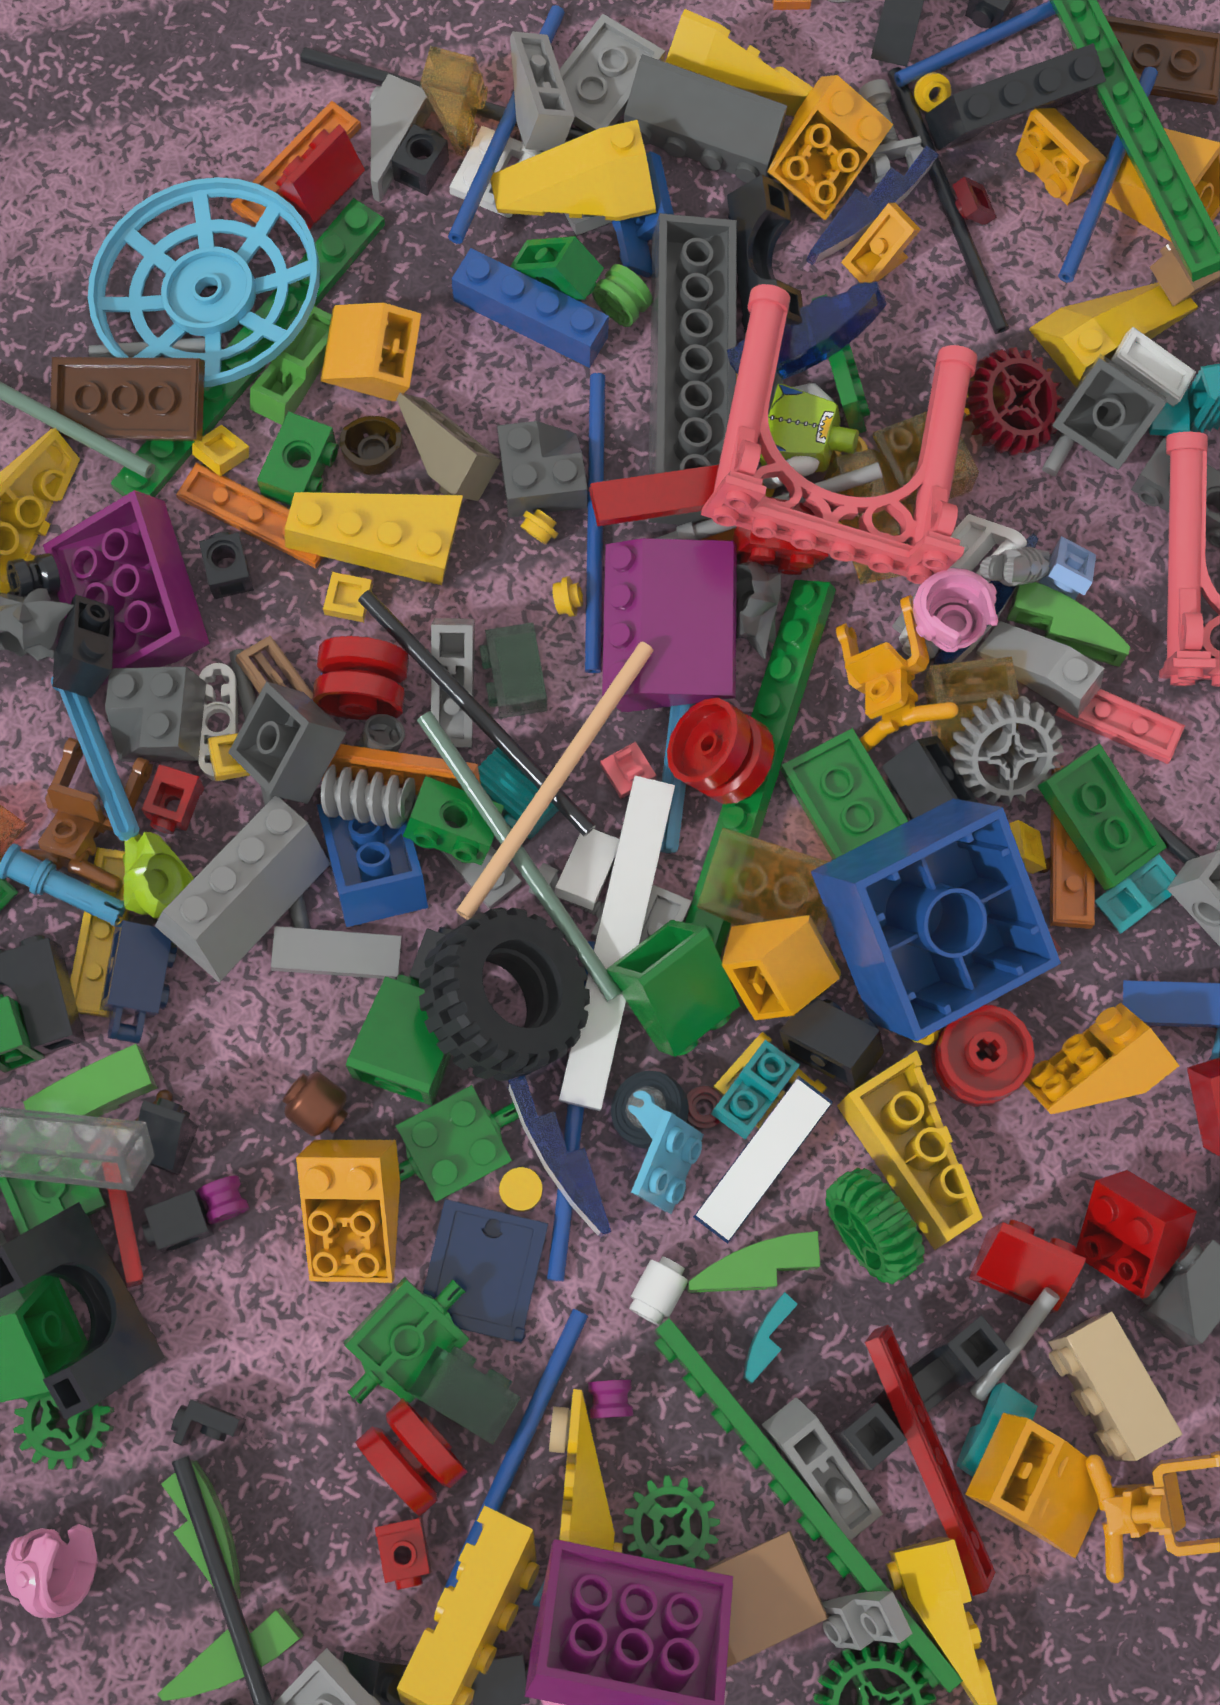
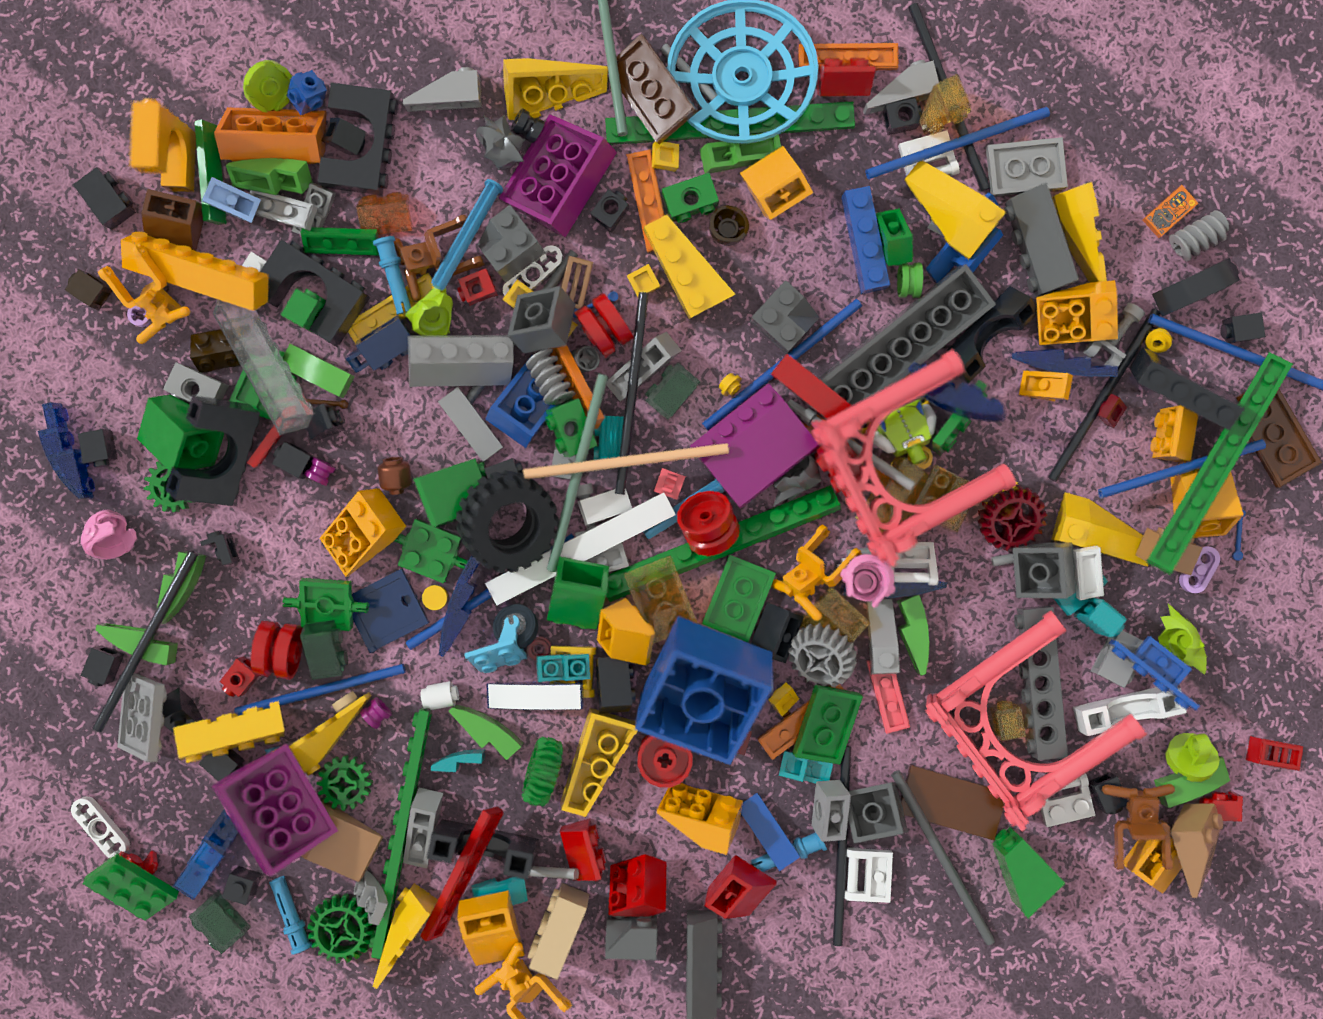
camera: 55 degrees right, 15 degrees up
(84, 647) = (511, 183): black slope -> none
(446, 450) = (755, 266): dark tan slope -> none
(539, 92) = (985, 145): light grey slope -> none
(539, 526) = (755, 341): yellow plate -> none
(1016, 566) = (917, 591): light grey hinge -> none
(1070, 569) = (945, 612): light blue slope -> none

